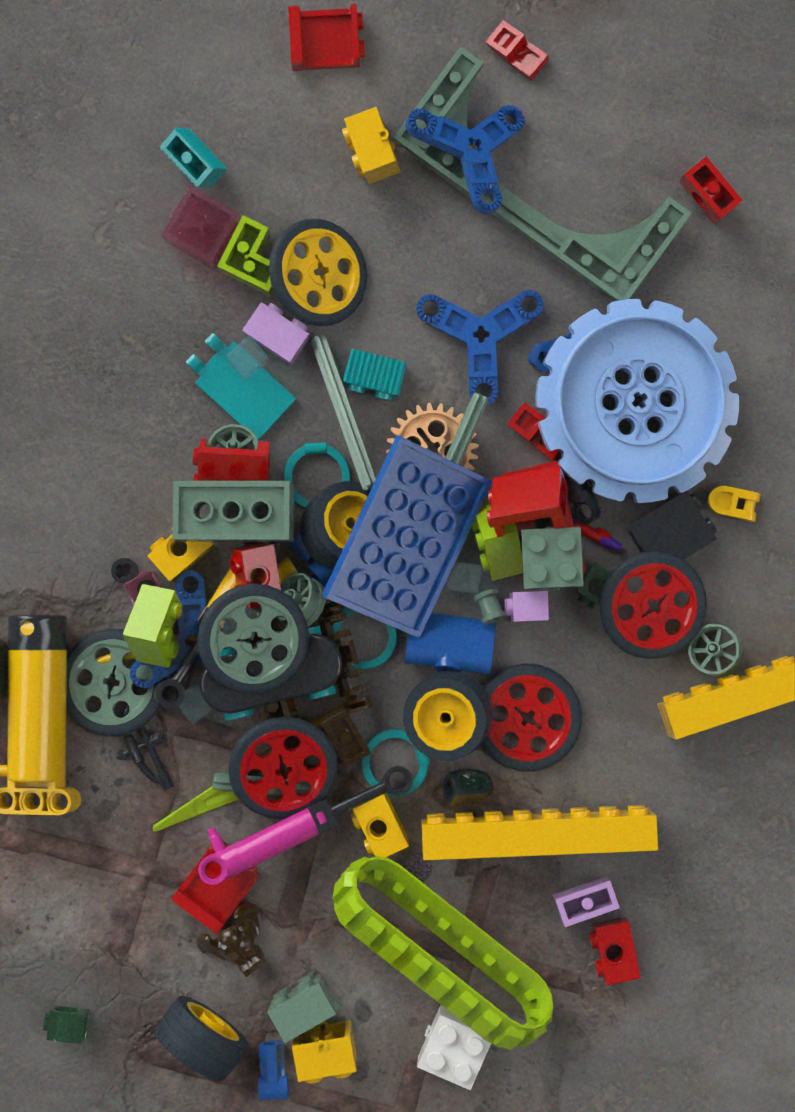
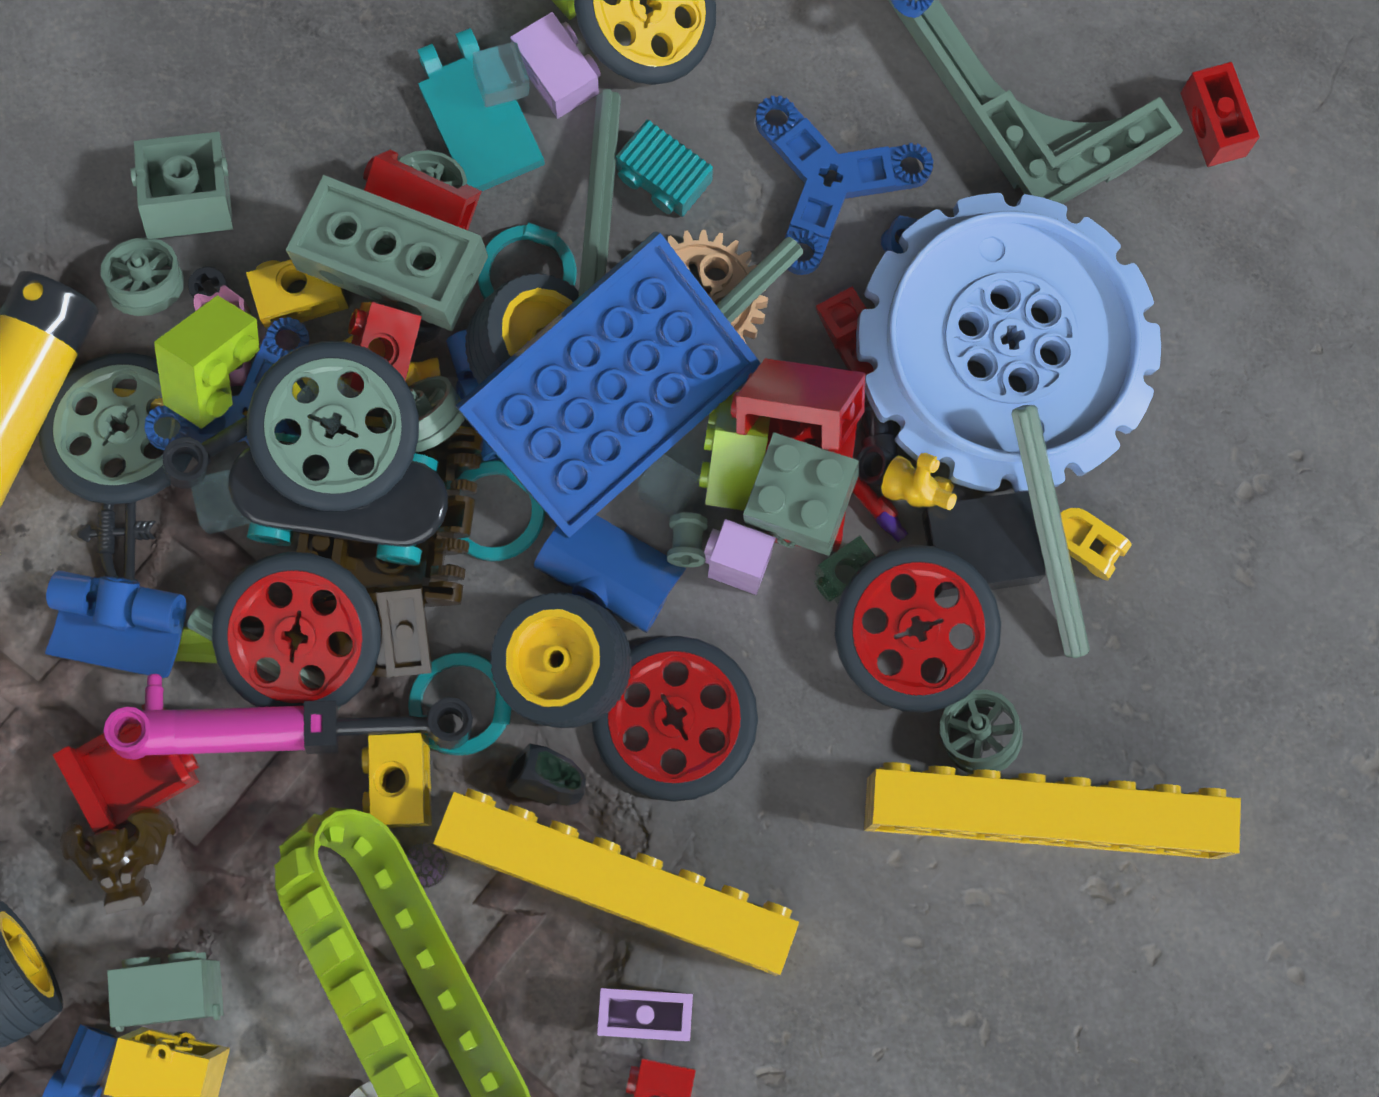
camera: 15 degrees right, 10 degrees down
(81, 515) = (182, 185): none -> sand green brick
(82, 583) = (132, 261): none -> sand green wheel
(168, 804) = (115, 623): none -> blue panel
(619, 515) = (917, 485): none -> yellow piece
(710, 512) = (1050, 530): none -> sand green axle

